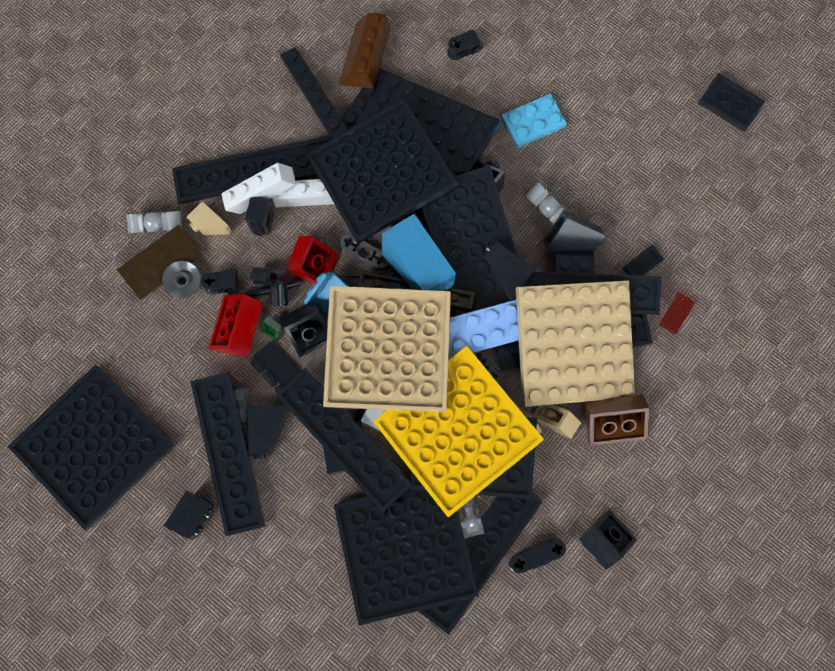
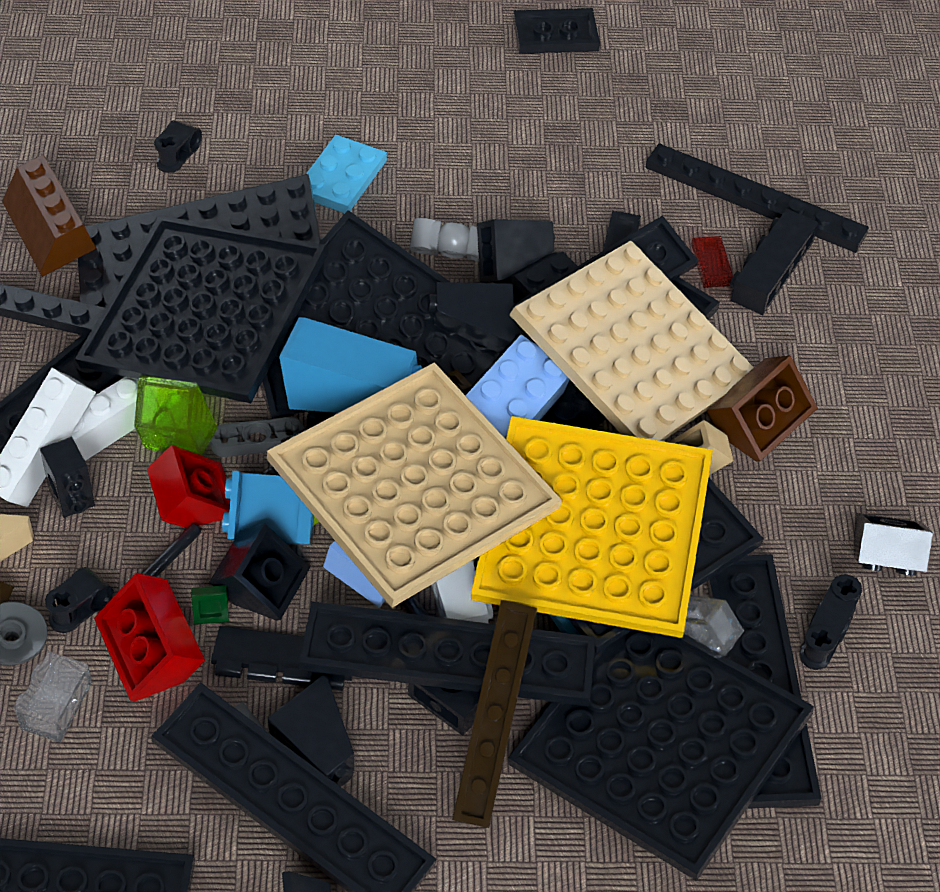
camera: 45 degrees left, 25 degrees down
(175, 324) = (53, 696): none -> clear brick
(276, 279) = (145, 542): black piece -> none
(327, 219) = (172, 414): none -> clear neon green slope
(336, 485) = (494, 714): none -> dark brown plate
(707, 339) = (773, 261): none -> black brick
(740, 291) = (753, 195): none -> black plate

